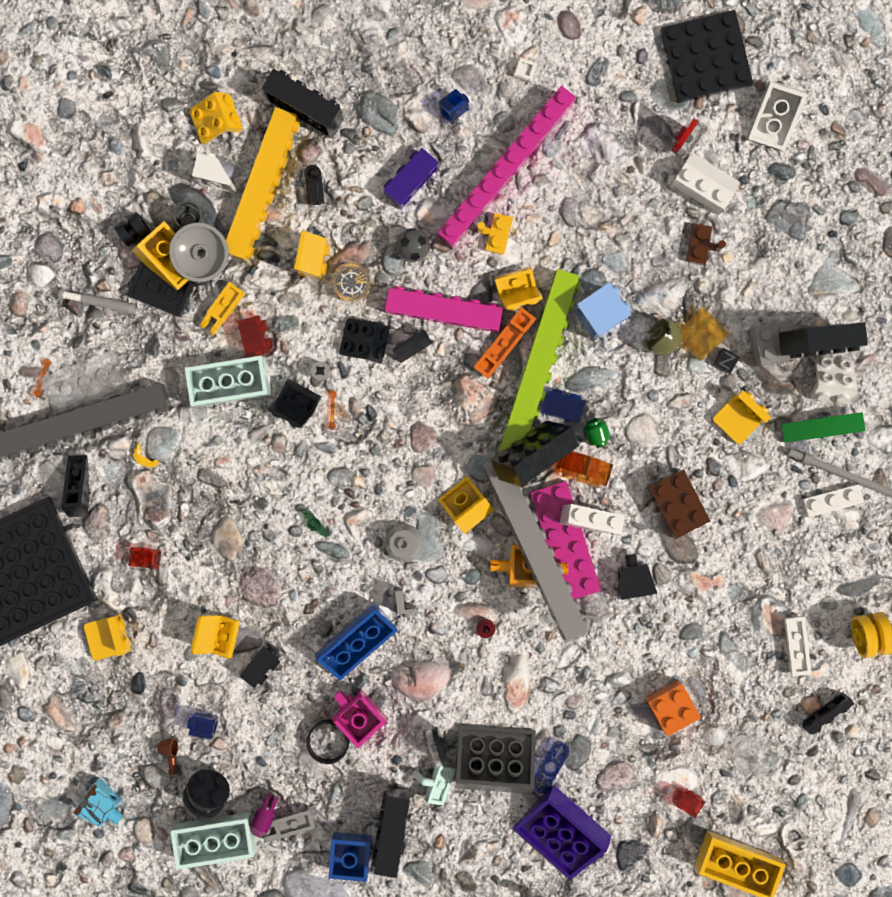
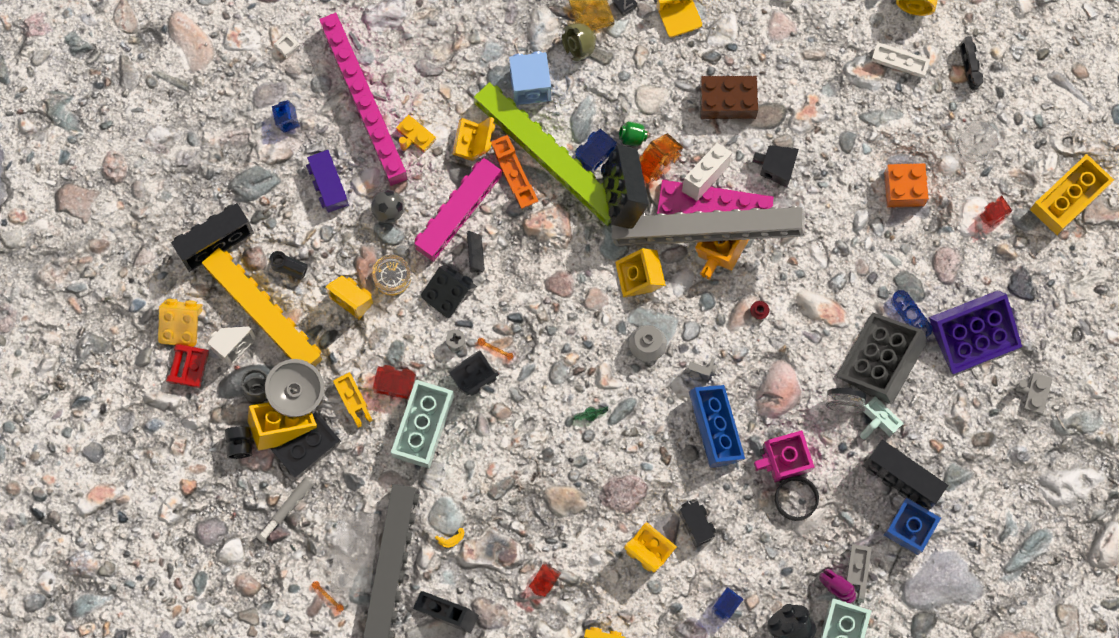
camera: 60 degrees left, 15 degrees down
(182, 152) = (193, 367): none -> red plate

